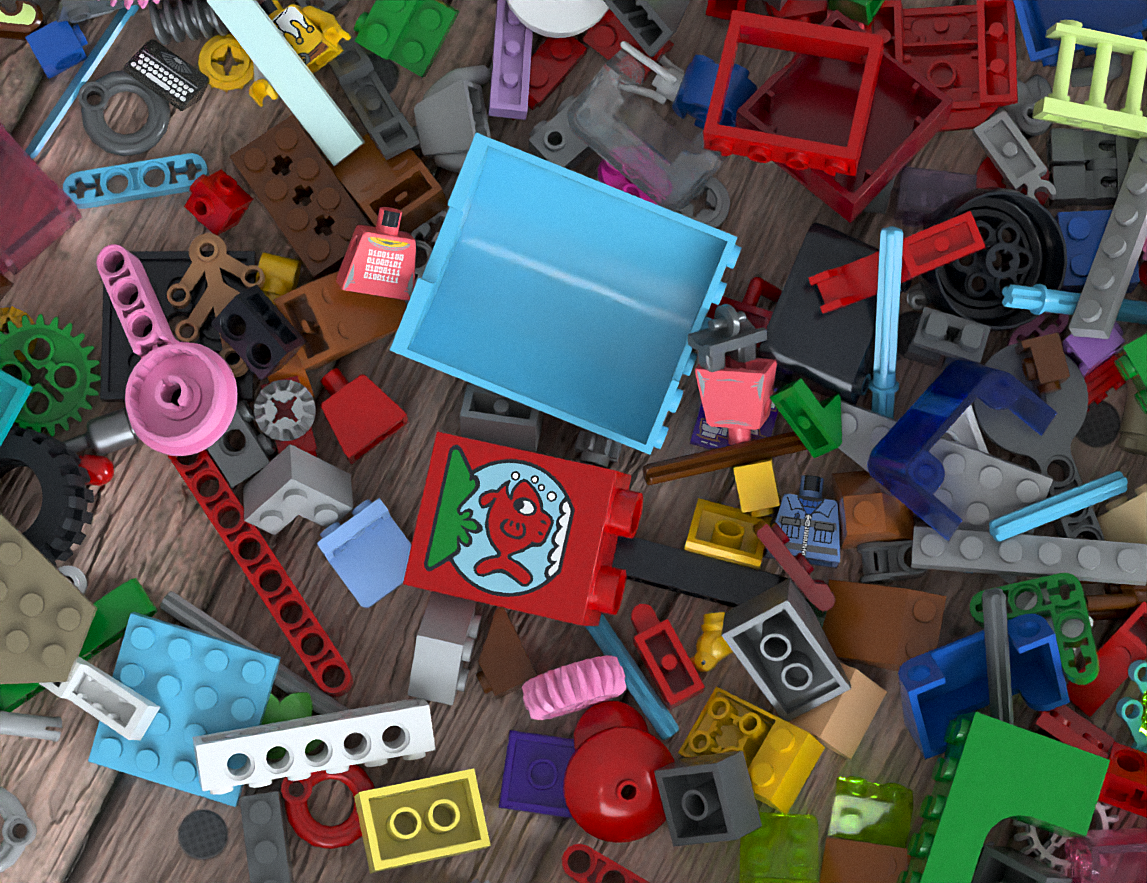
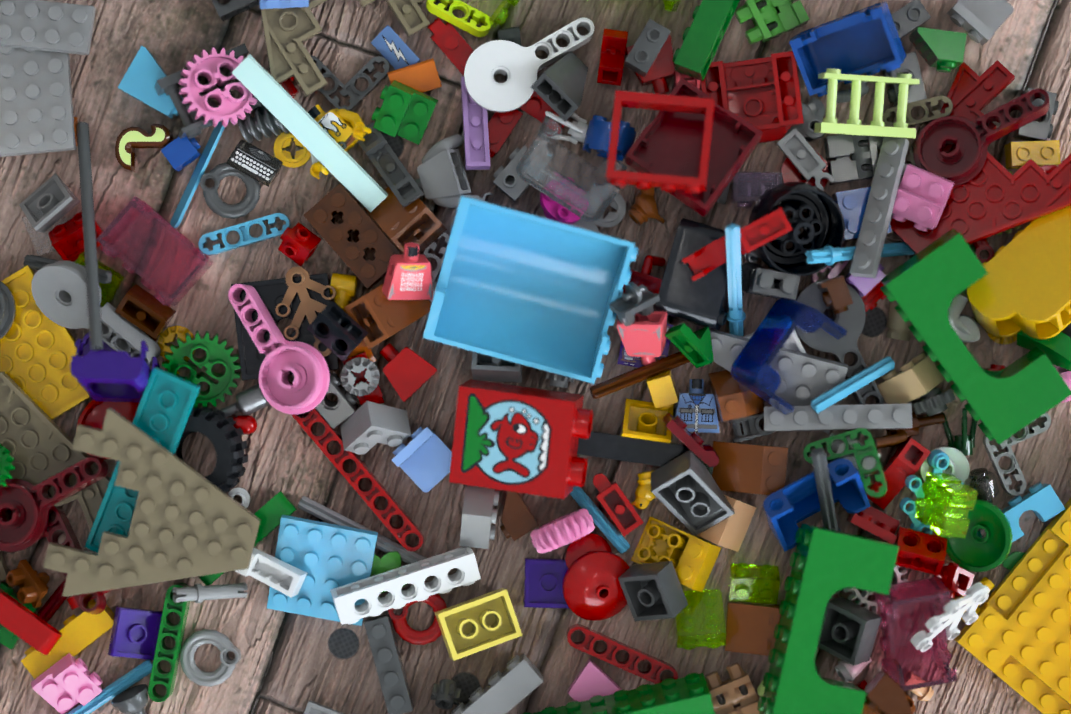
camera: 10 degrees left, 10 degrees up
(759, 206) = (645, 207): none -> dark orange animal

